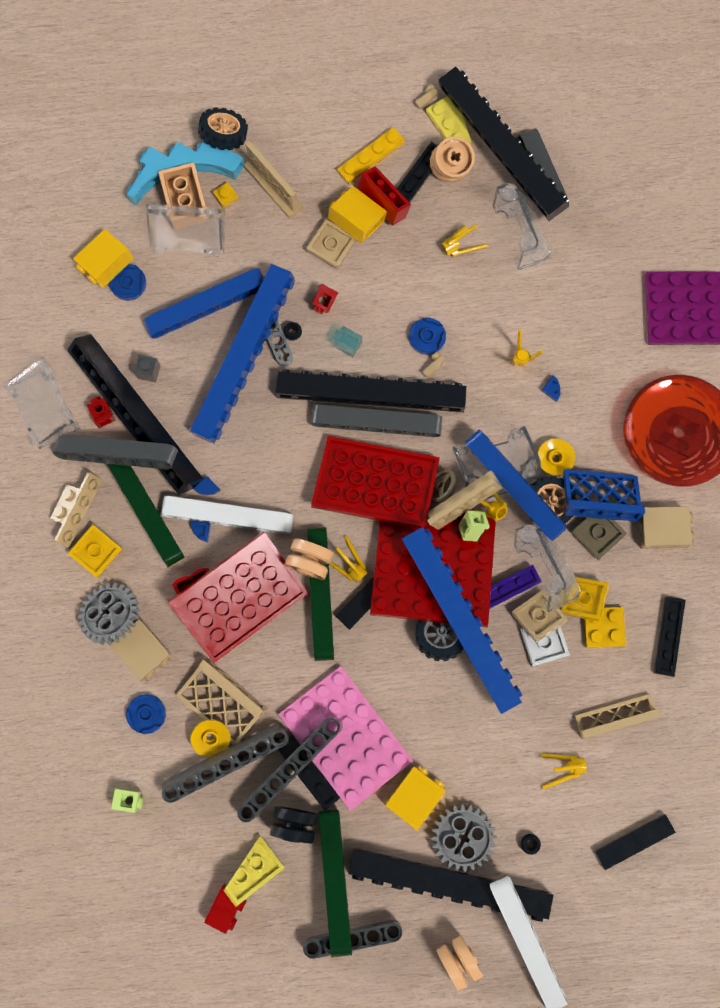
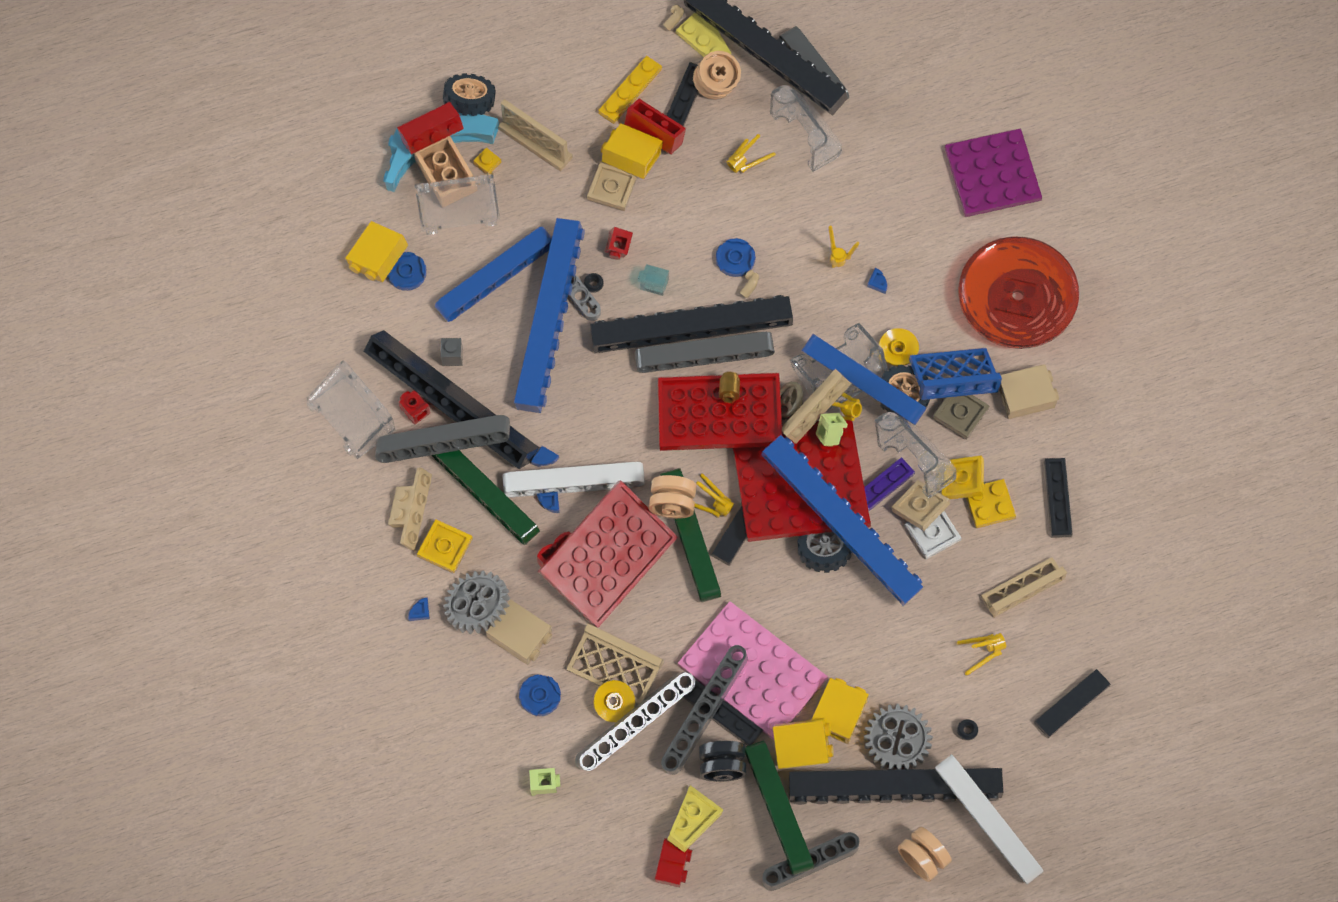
camera: 15 degrees left, 10 degrees down
(58, 606) = (420, 610): none -> blue tile
(177, 153) = (430, 128): none -> red brick
(372, 825) = (802, 743): none -> yellow brick
(389, 462) = (729, 387): none -> pearl gold brick

